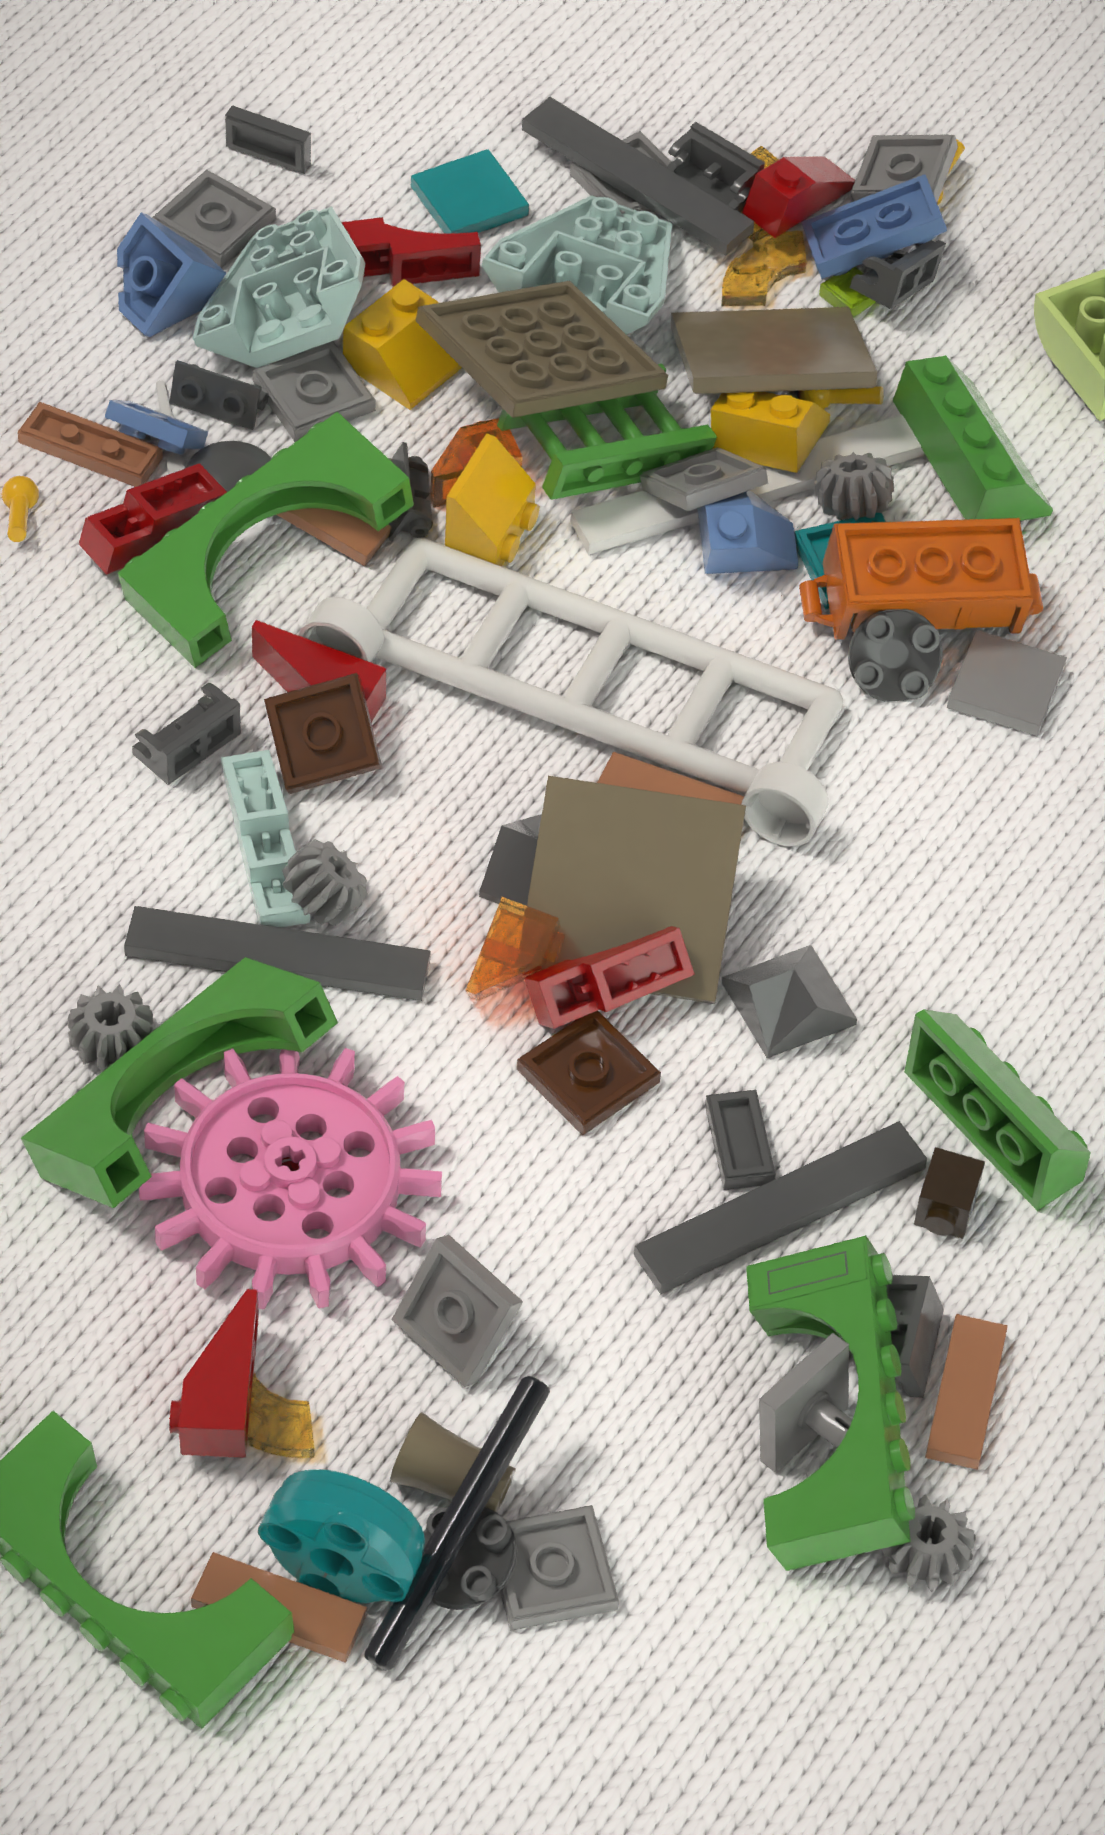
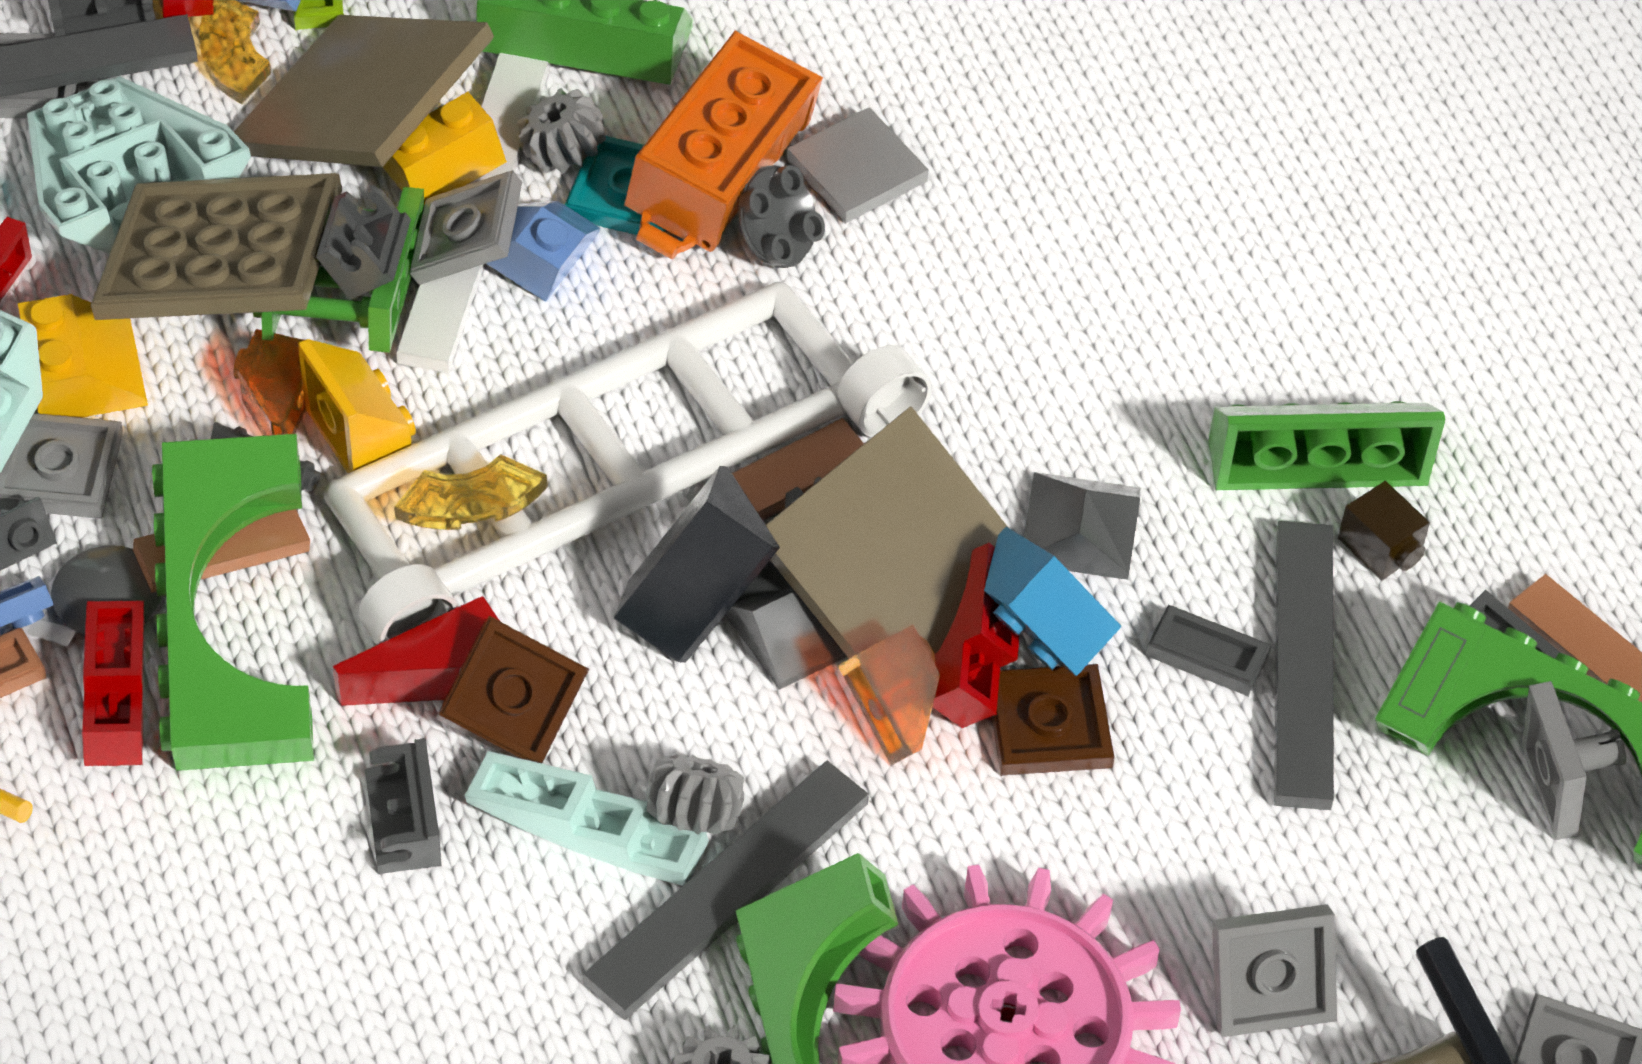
camera: 55 degrees left, 0 degrees up
(457, 609) = (459, 499): none -> clear yellow tile
(504, 766) = (697, 569): none -> black slope
(610, 416) = (361, 245): none -> dark grey hinge
(664, 996) = (1047, 604): none -> dark azure slope

